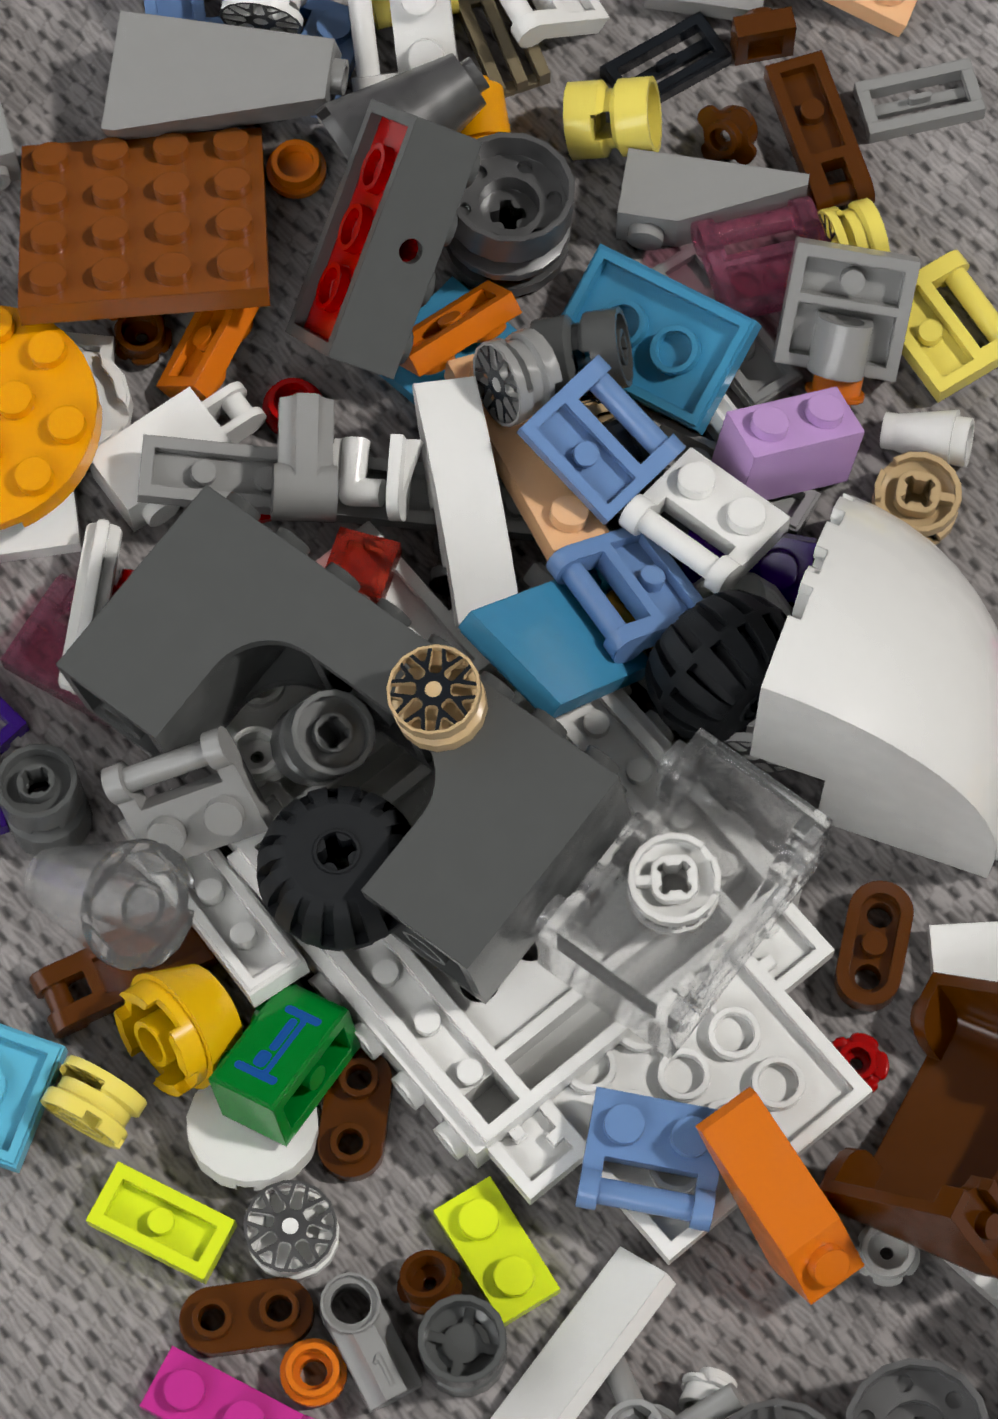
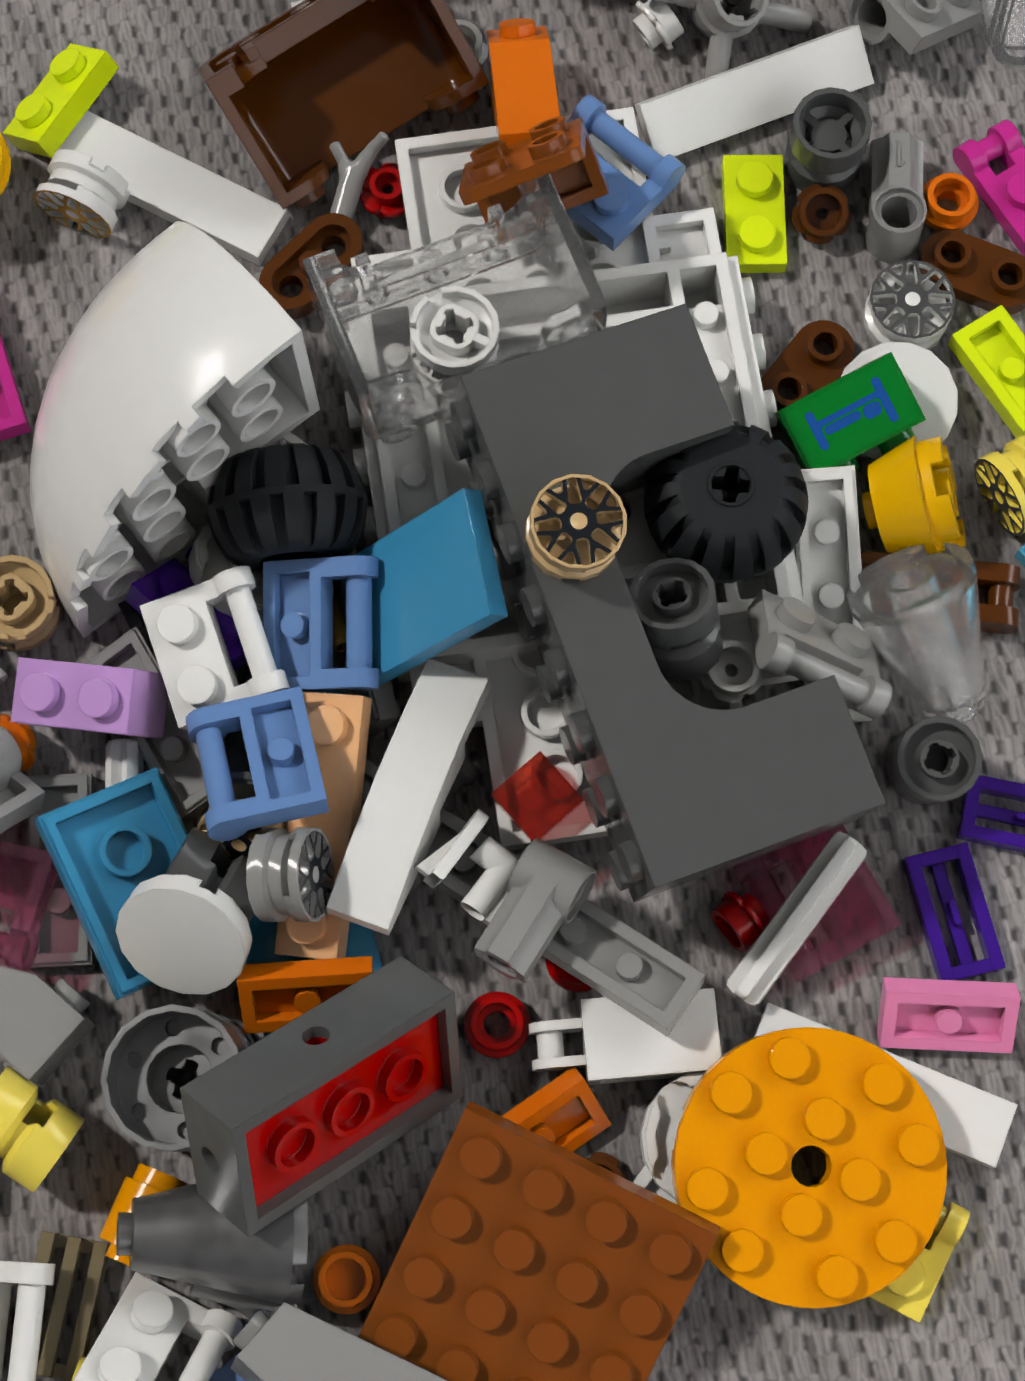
camera: 150 degrees left, 5 degrees up
(582, 291) = (183, 934): none -> white tile
(699, 1056) = (553, 148): none -> dark orange bracket
(894, 1049) = (353, 174): none -> light grey bar

